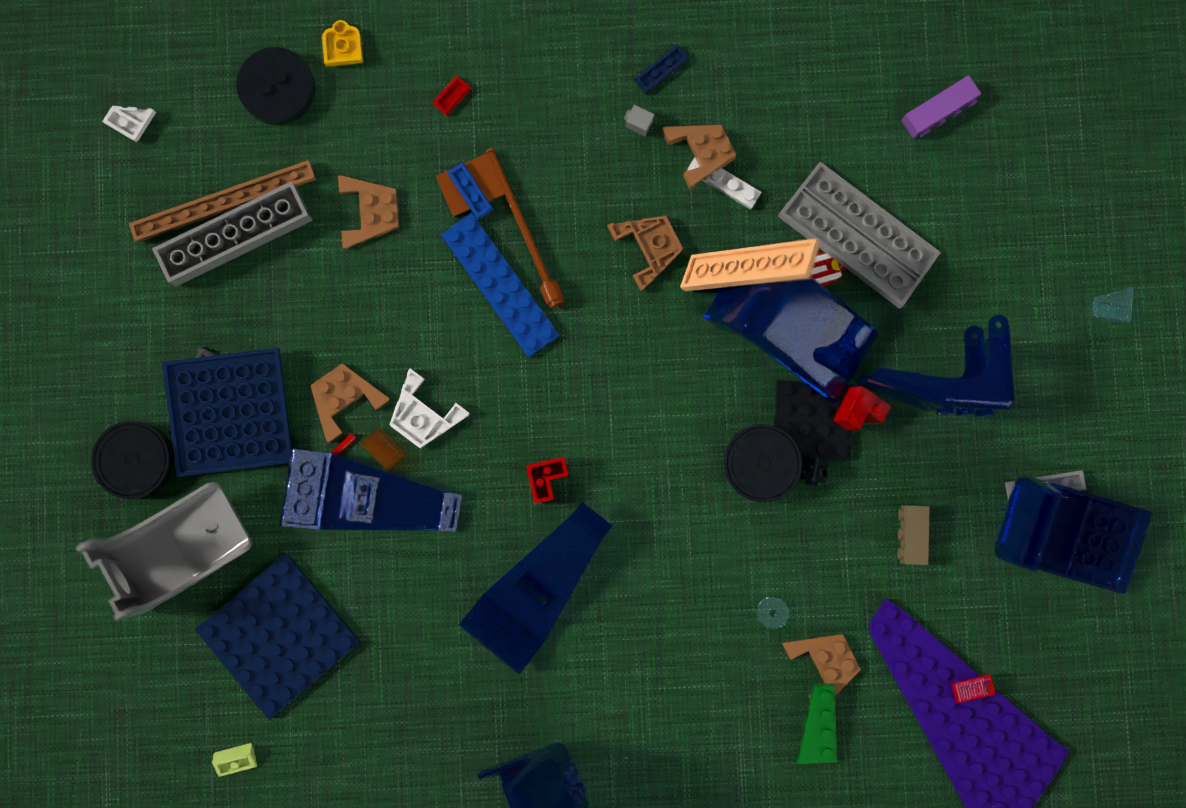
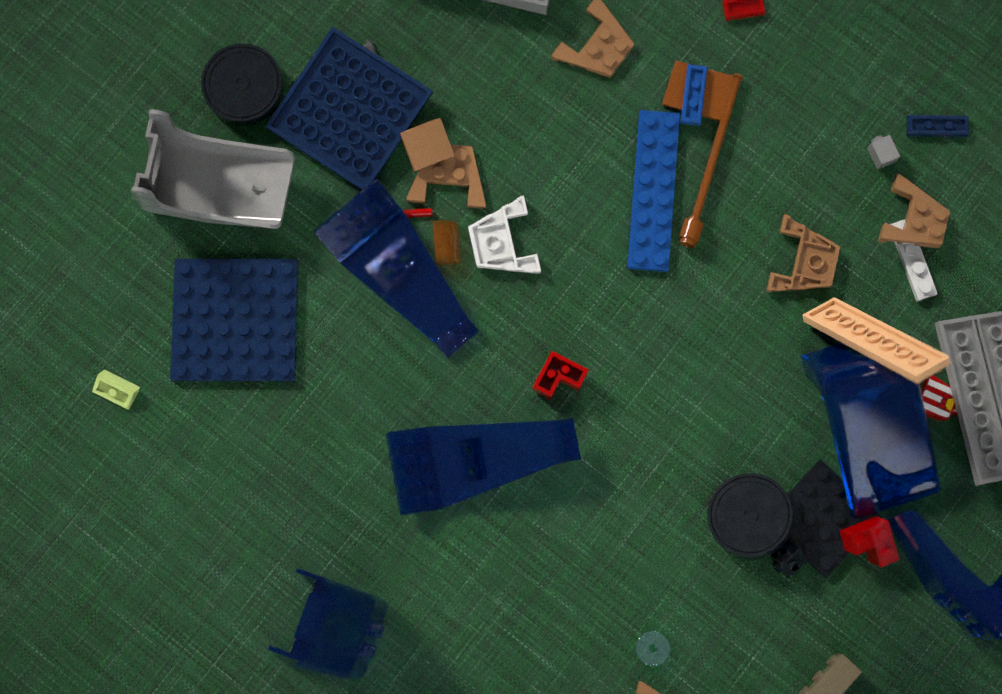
camera: 45 degrees right, 5 degrees down
(307, 390) = (427, 144): none -> medium nougat slope

